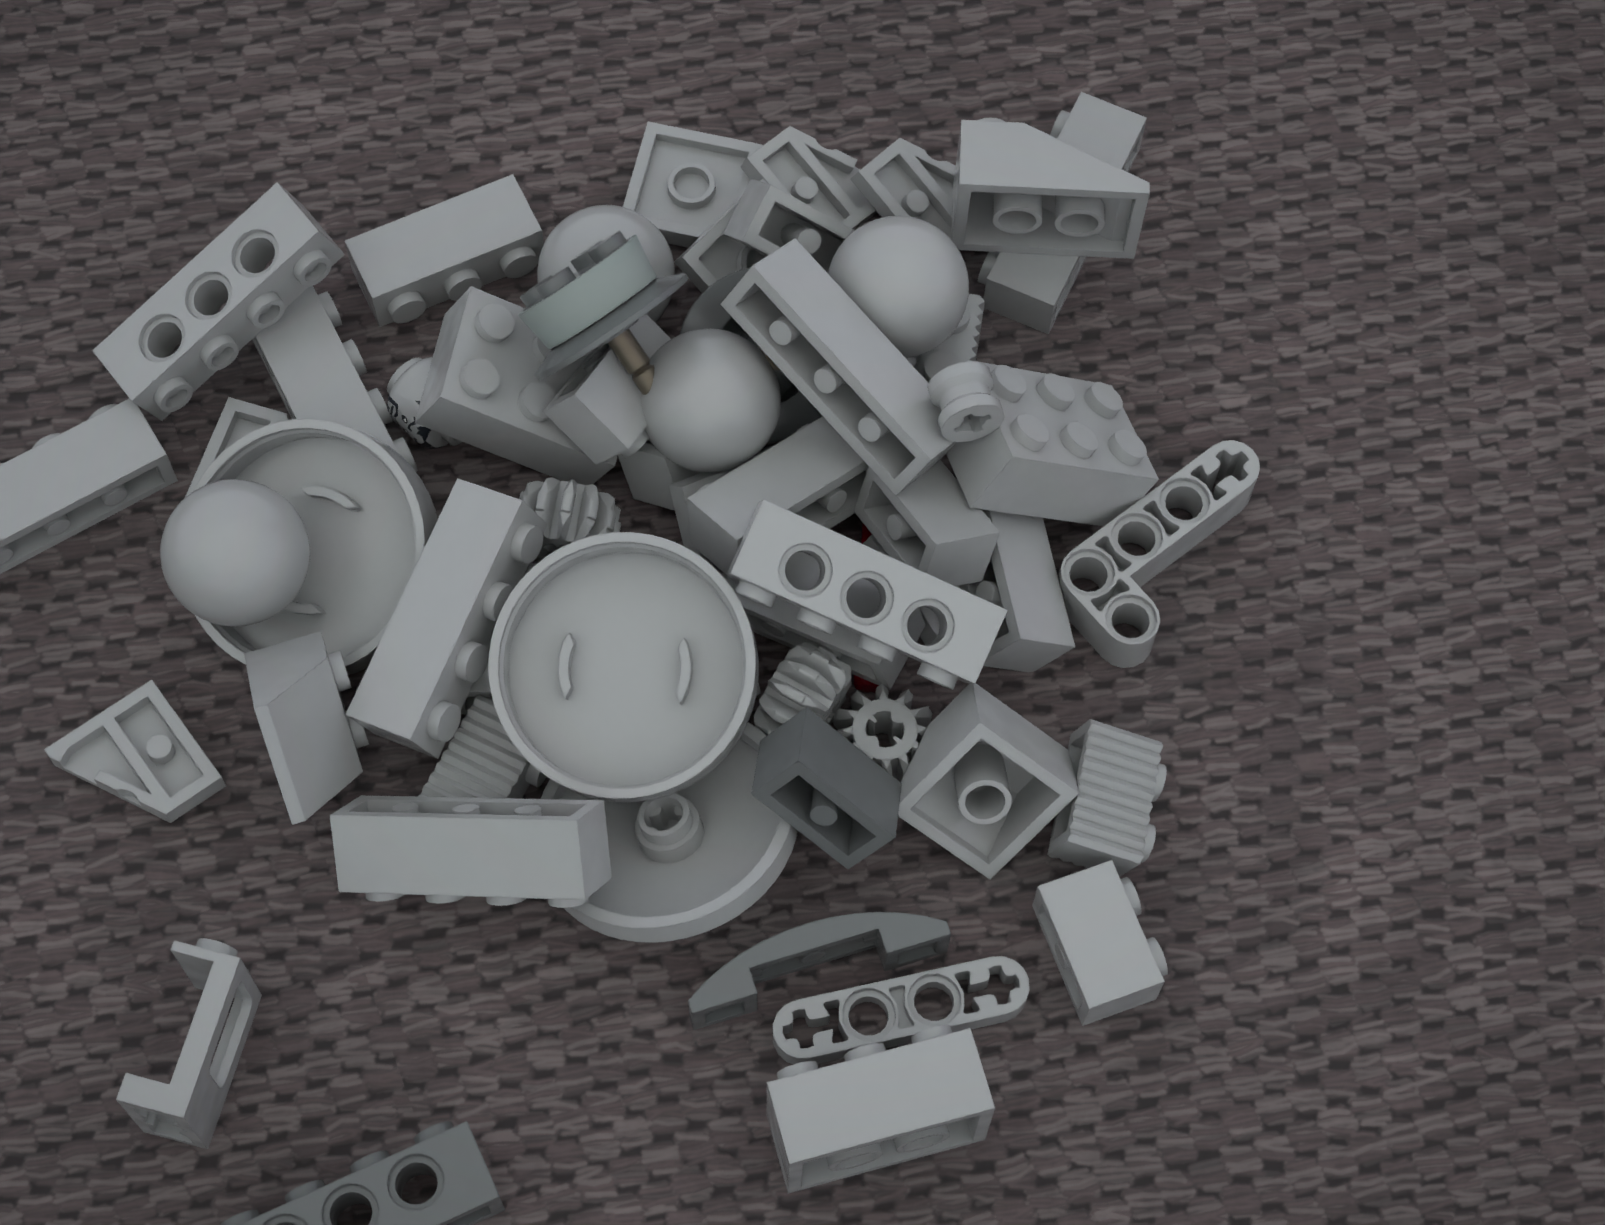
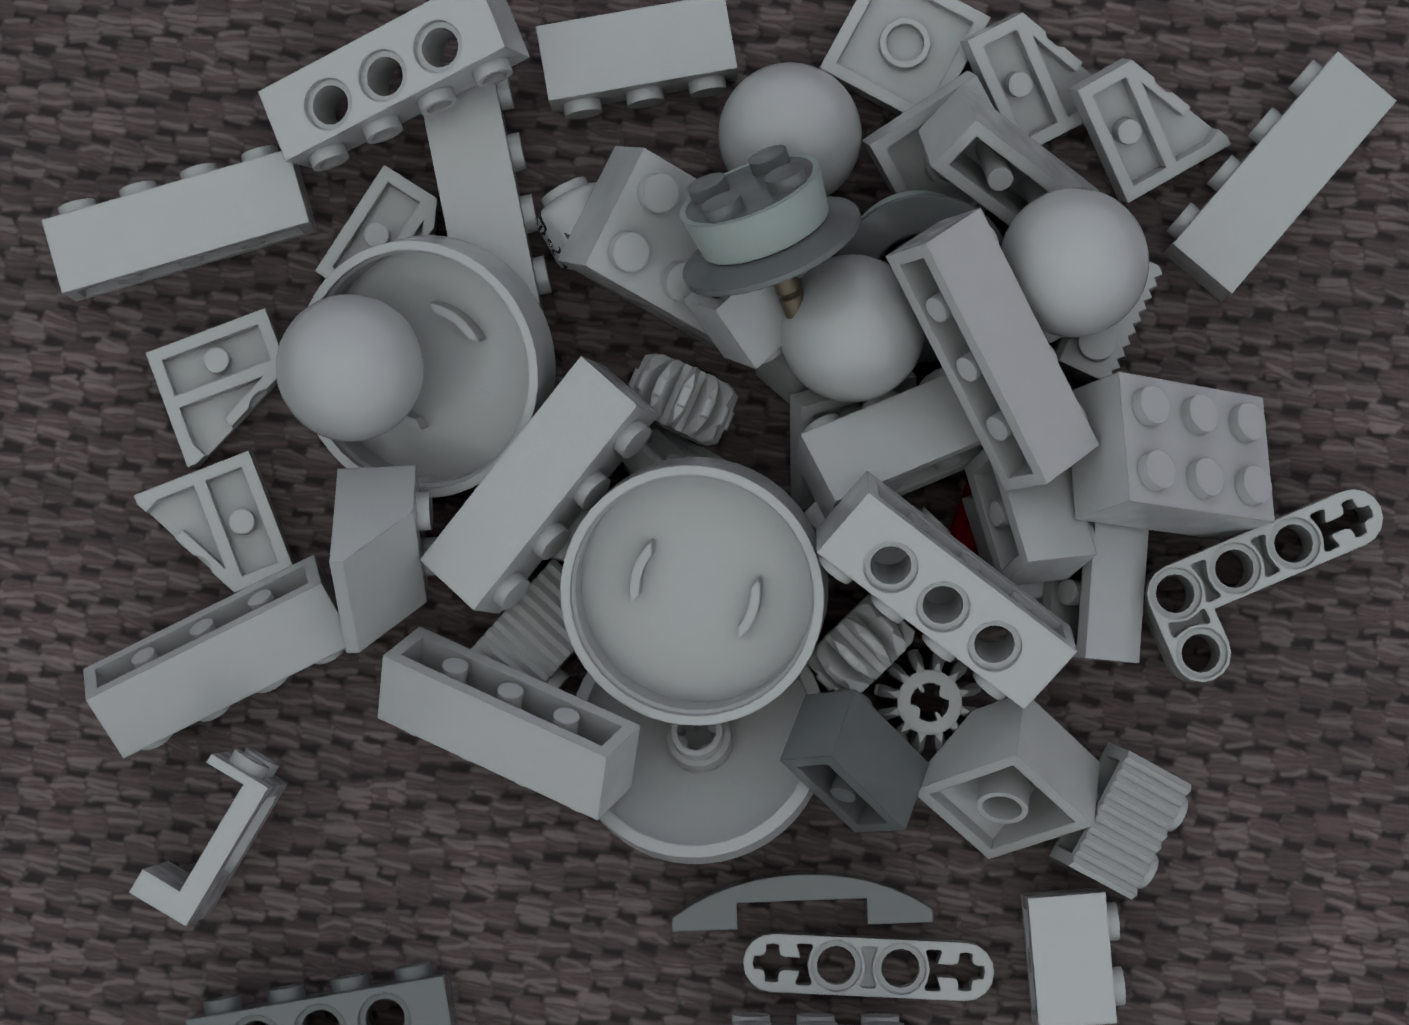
camera: 20 degrees right, 20 degrees up
(107, 627) = (215, 380): none -> light grey wing
(163, 877) = (216, 658): none -> light grey brick
(965, 401) = (1100, 430): light grey wheel -> none
(1041, 195) = (1246, 182): light grey slope -> none

